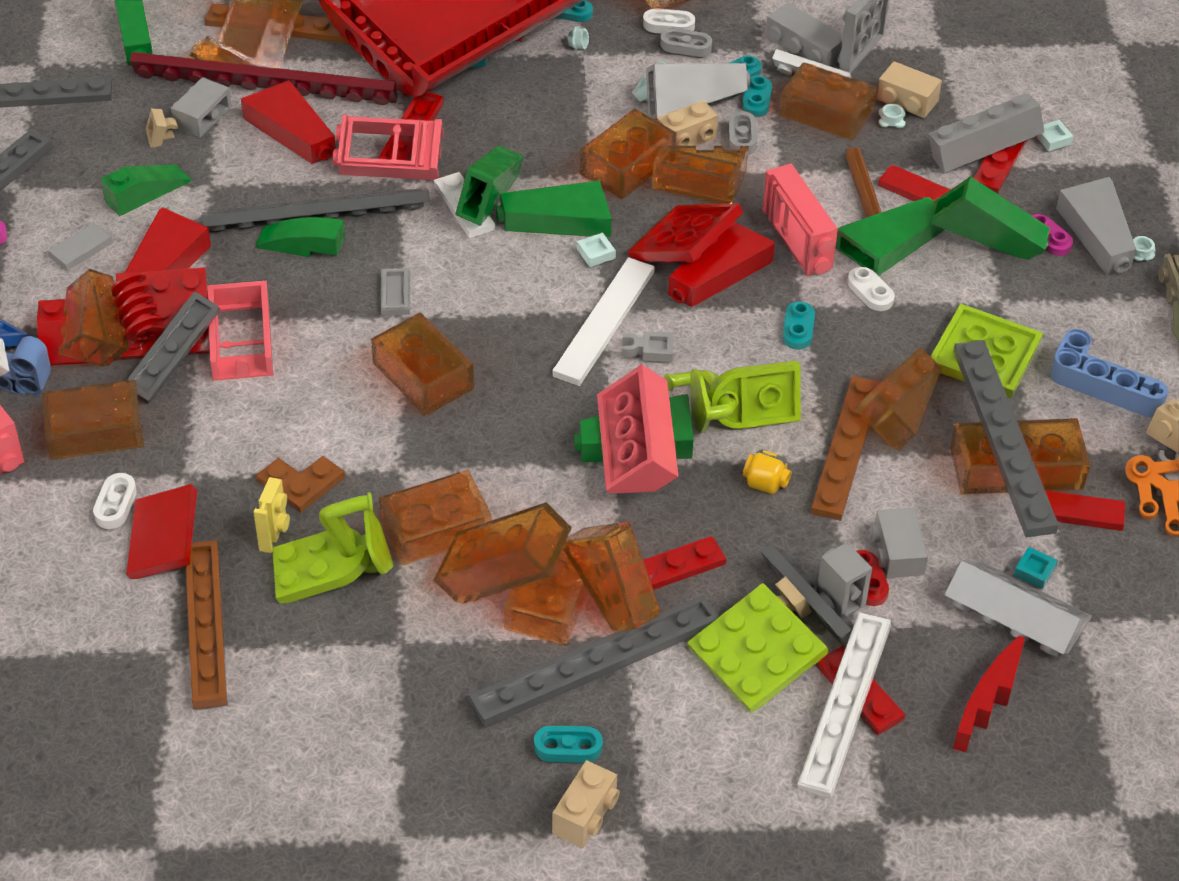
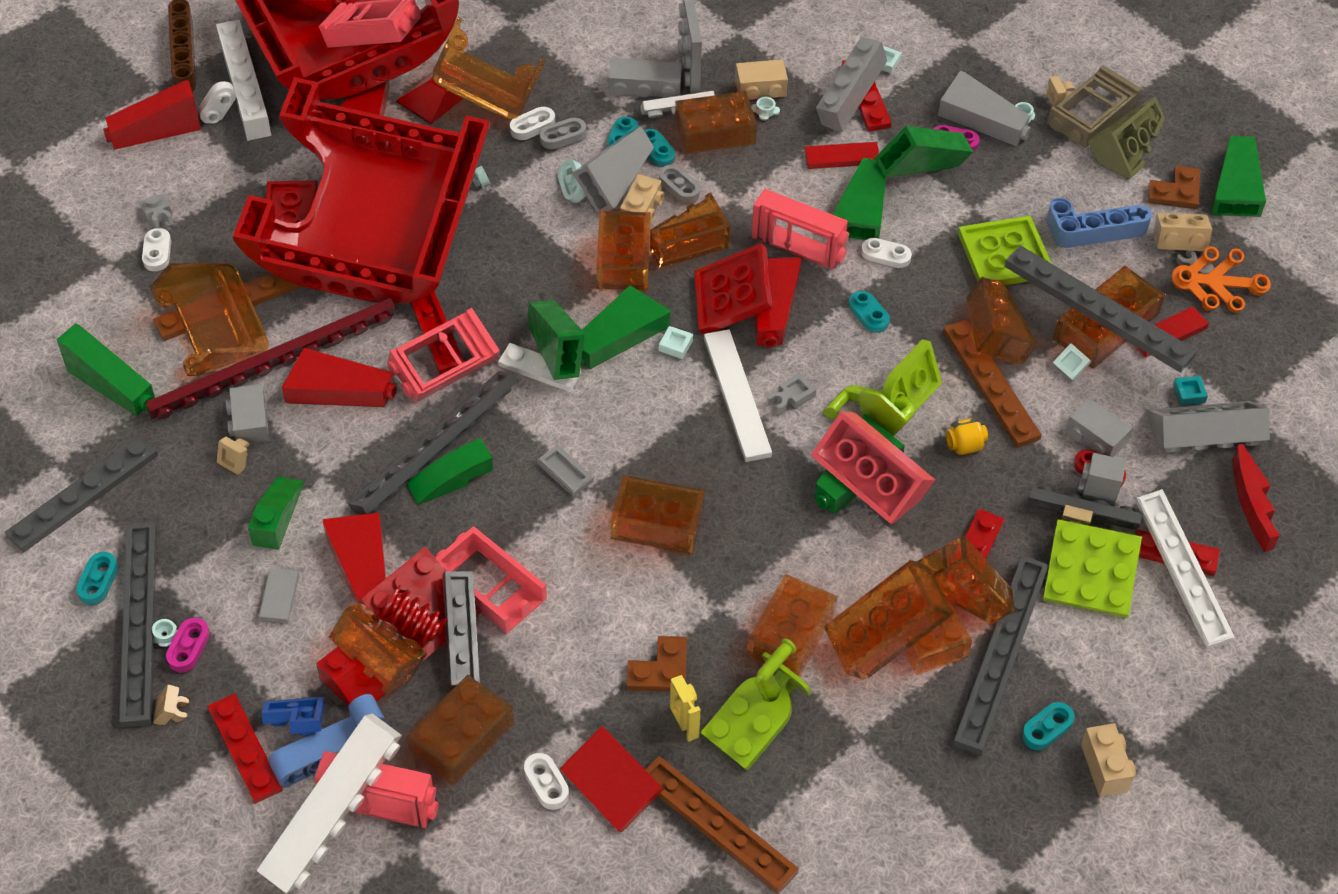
camera: 40 degrees left, 5 degrees up
(862, 182) = (802, 175): dark orange axle -> none
(941, 474) = (1072, 362): none -> light aqua plate

